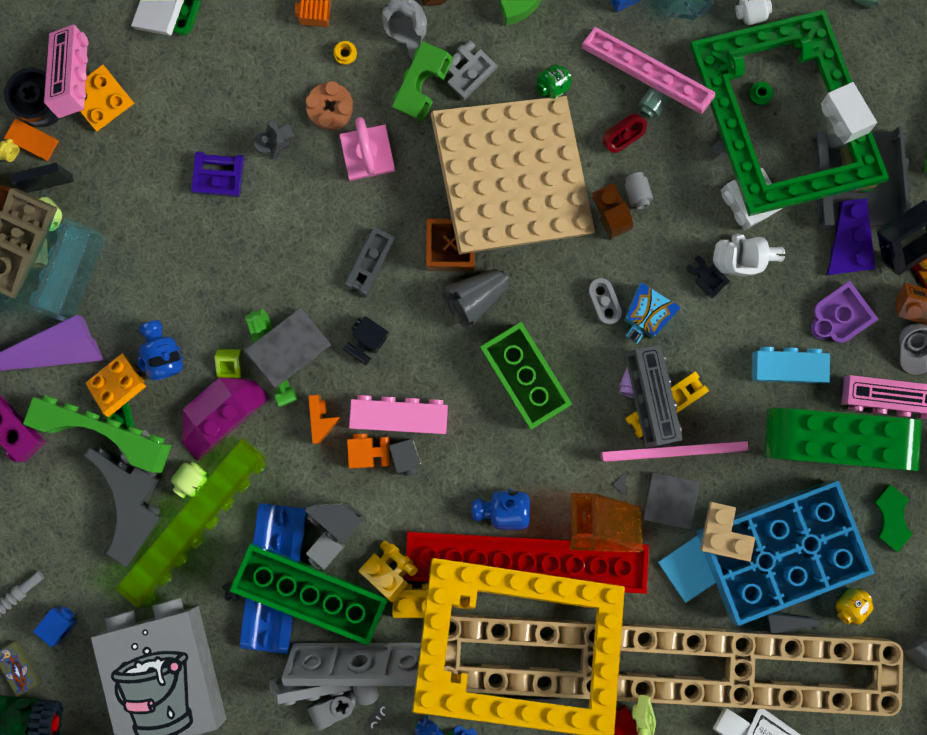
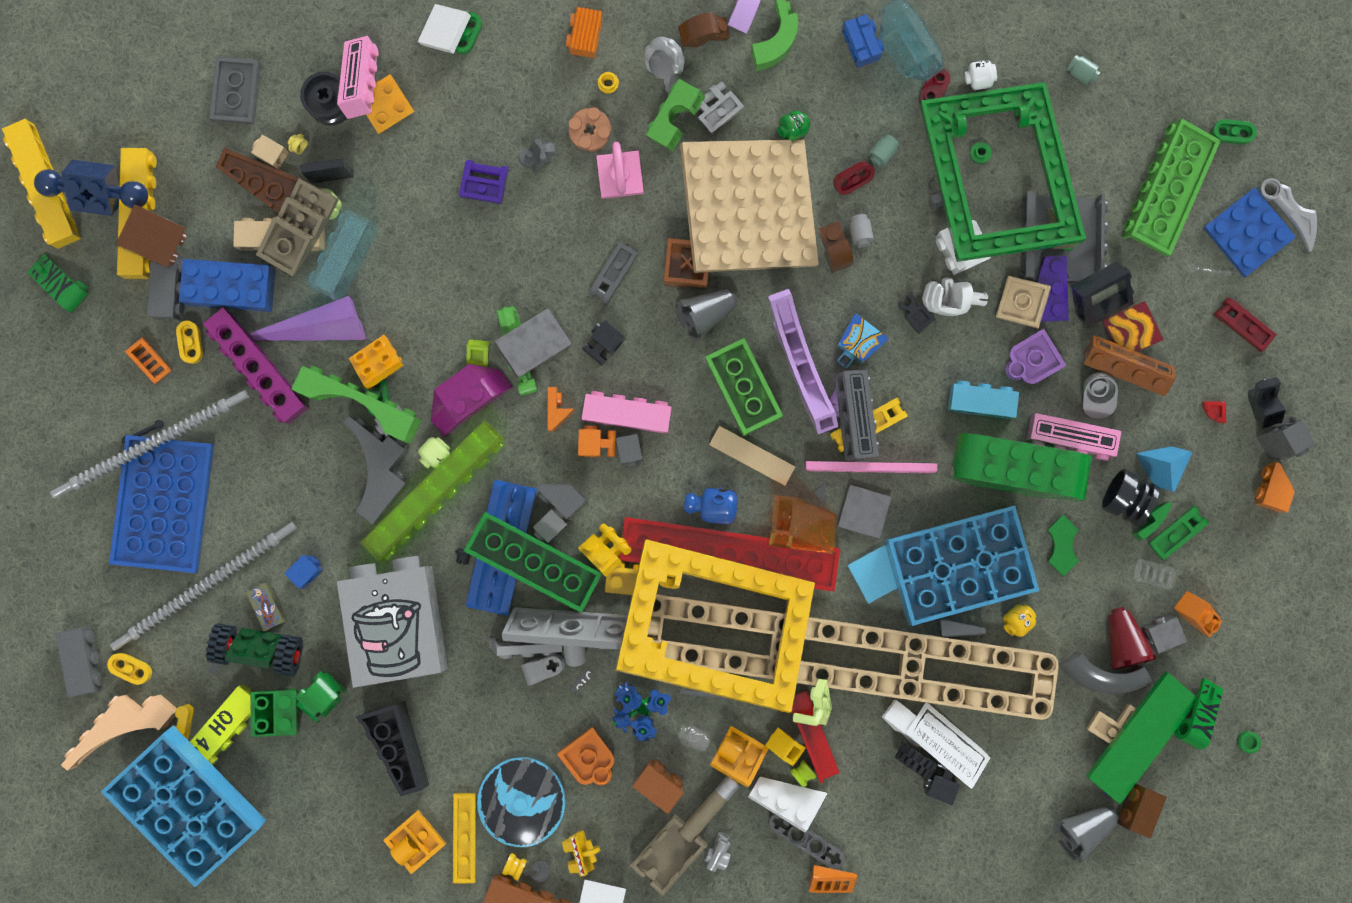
camera: 10 degrees right, 0 degrees up
(31, 139) = (319, 136): orange tile -> none
(159, 355) = (417, 338): blue piece -> none
(541, 450) = (752, 455): none -> tan tile
(586, 344) = (801, 363): none -> lavender arch
(605, 301) = (821, 328): light grey plate -> none
(648, 70) = (880, 123): bright pink tile -> none
(704, 25) = (935, 87): none -> dark red plate
(718, 536) = (902, 543): tan plate -> none
(824, 253) = (1023, 302): none -> tan tile
(848, 113) = (1055, 177): white brick -> none

